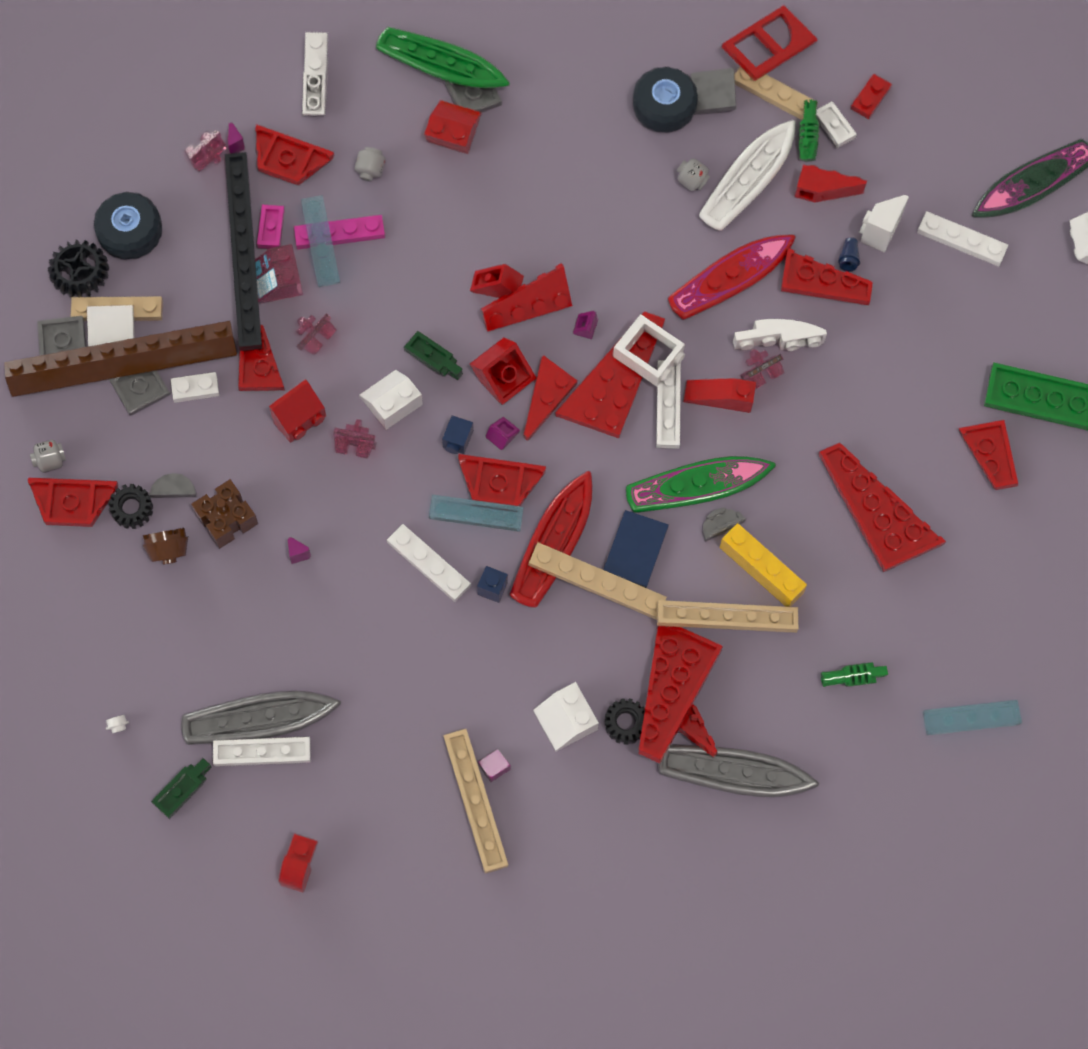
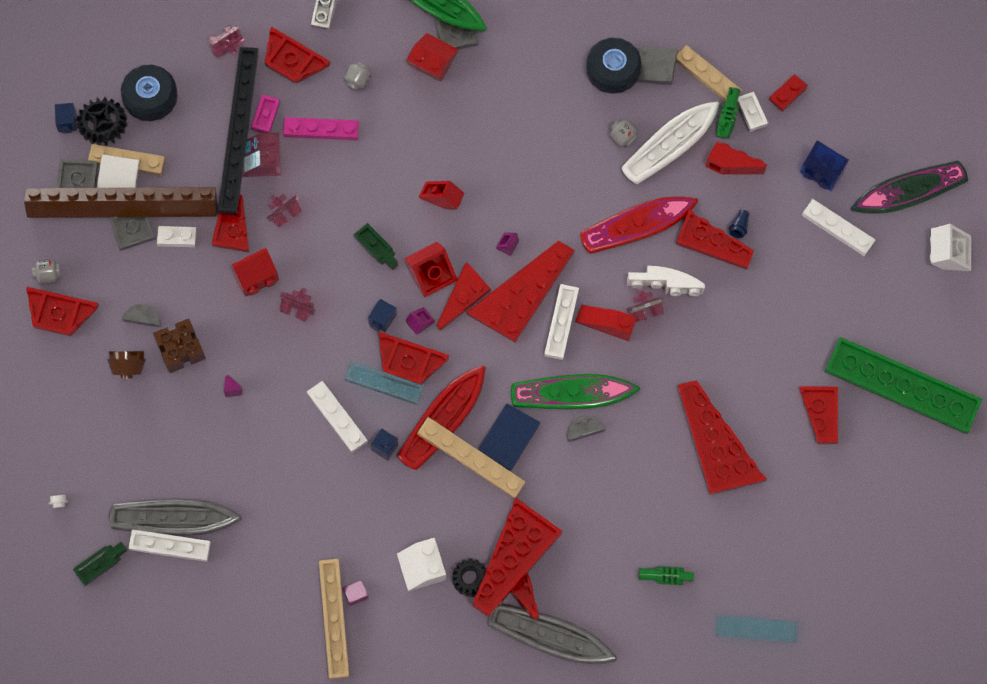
camera: 10 degrees right, 0 degrees up
(34, 272) = (65, 117): none -> dark blue brick
(131, 493) = (100, 315): black tyre -> none
(235, 140) = (250, 38): magenta slope -> none
(297, 862) = (177, 643): red brick -> none
(320, 241) = (303, 133): clear light blue plate -> none
(392, 398) = (335, 275): white slope -> none
(532, 300) = (469, 214): red wing -> none
(622, 348) = (540, 261): white window -> none
(727, 616) = (571, 507): tan plate -> none
(763, 565) = (610, 471): yellow brick -> none
(799, 40) = (739, 33): red window -> none
(882, 222) = (773, 202): white slope -> none
(932, 170) = (824, 166): none -> clear blue slope

